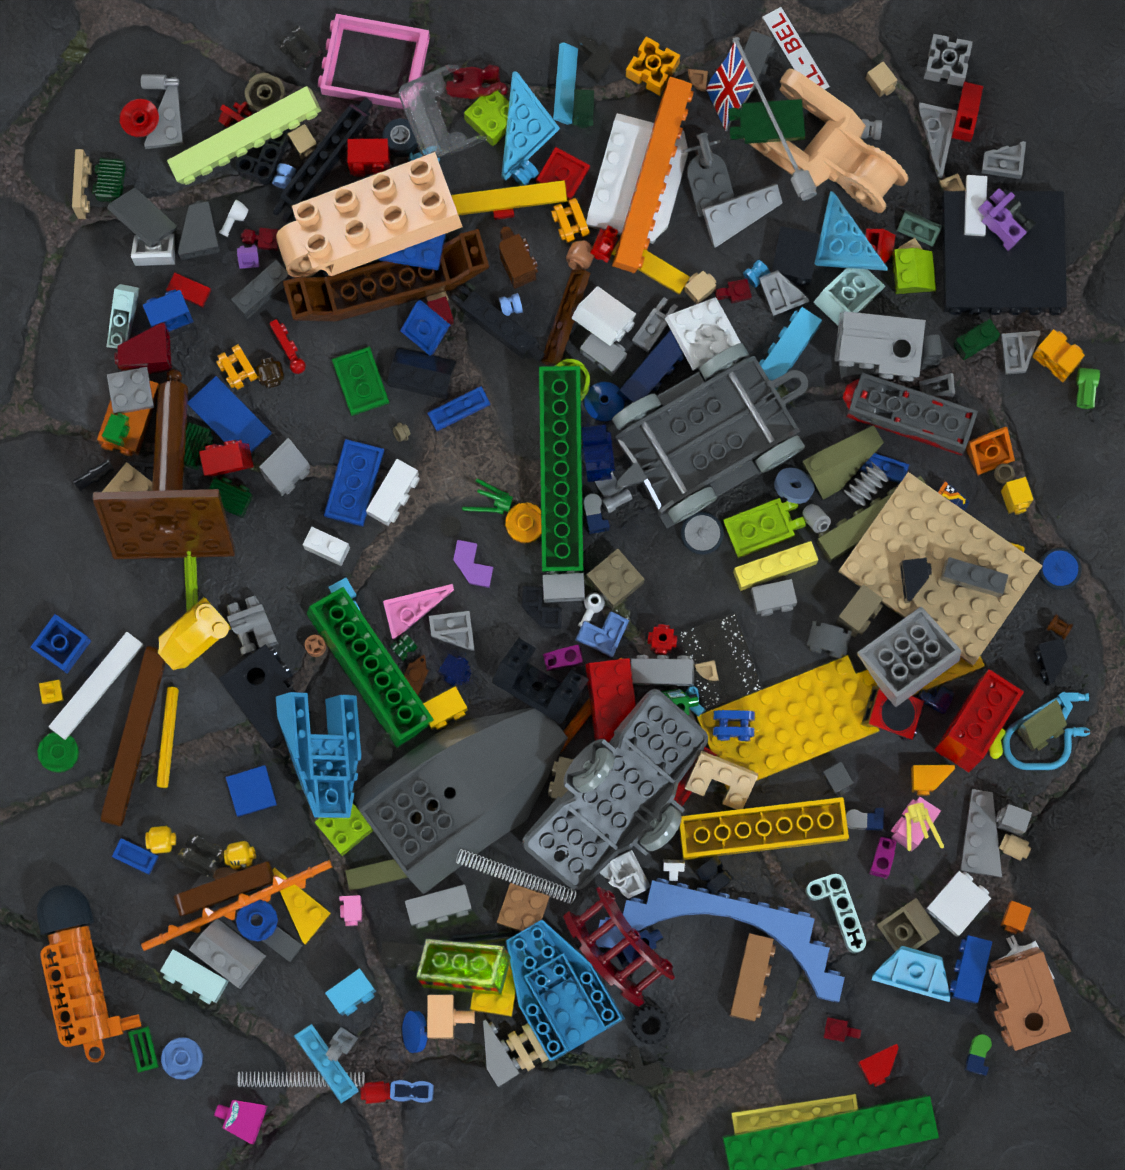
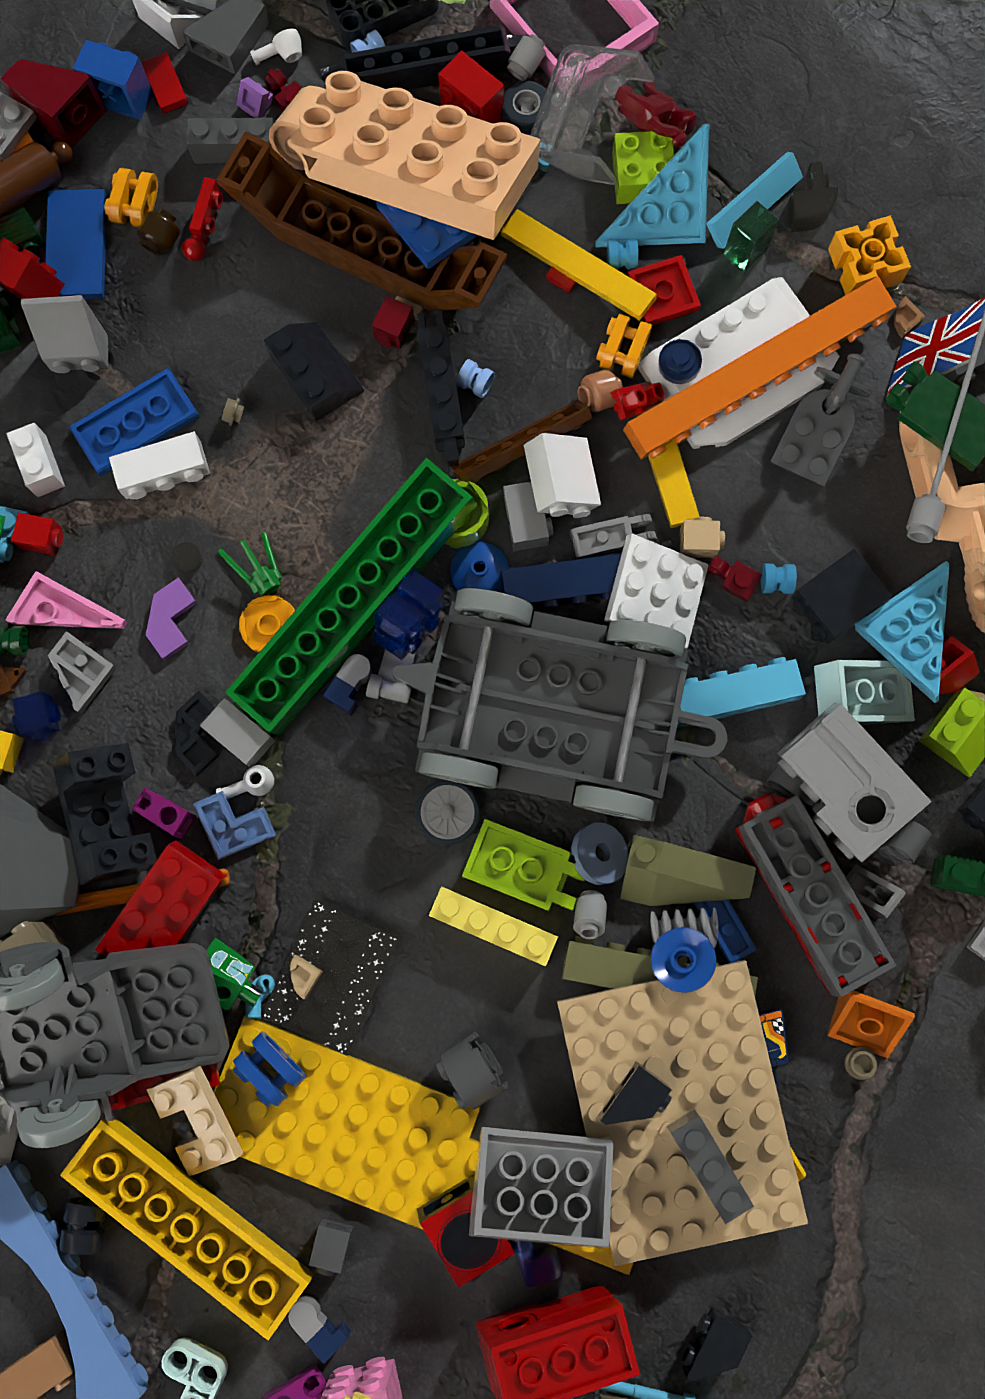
camera: 45 degrees right, 0 degrees up
(122, 314) = (70, 40): light aqua slope -> none
(302, 141) = (421, 24): tan brick -> none
(360, 381) = (243, 322): green tile -> none
(365, 582) = (37, 534): none -> red brick
(378, 110) = (526, 57): none -> light grey brick
(425, 327) = (359, 321): blue tile -> none
(458, 408) = (317, 440): blue tile -> none
(516, 258) = (525, 332): reddish brown hinge -> none
(609, 206) = (680, 361): none -> dark blue plate
(615, 578) = (301, 775): dark tan brick -> none
(662, 647) = (298, 892): red brick -> none
(662, 671) = (252, 929): light grey brick -> none
(673, 867) = (48, 1169): white tile -> none
(739, 212) = (813, 493): light grey wing -> none
(774, 597) = (458, 961): light grey brick -> none
(781, 293) = (786, 623): light grey wing -> none
(859, 610) = (539, 1073): dark tan brick -> none
(872, 490) = (678, 944): none -> blue dish
(928, 777) = (439, 1351): light orange slope -> none
(1017, 496) = (853, 1109): yellow brick -> none
(1059, 627) = (762, 1314): reddish brown bush -> none
(1060, 568) = (828, 1242): blue wheel -> none

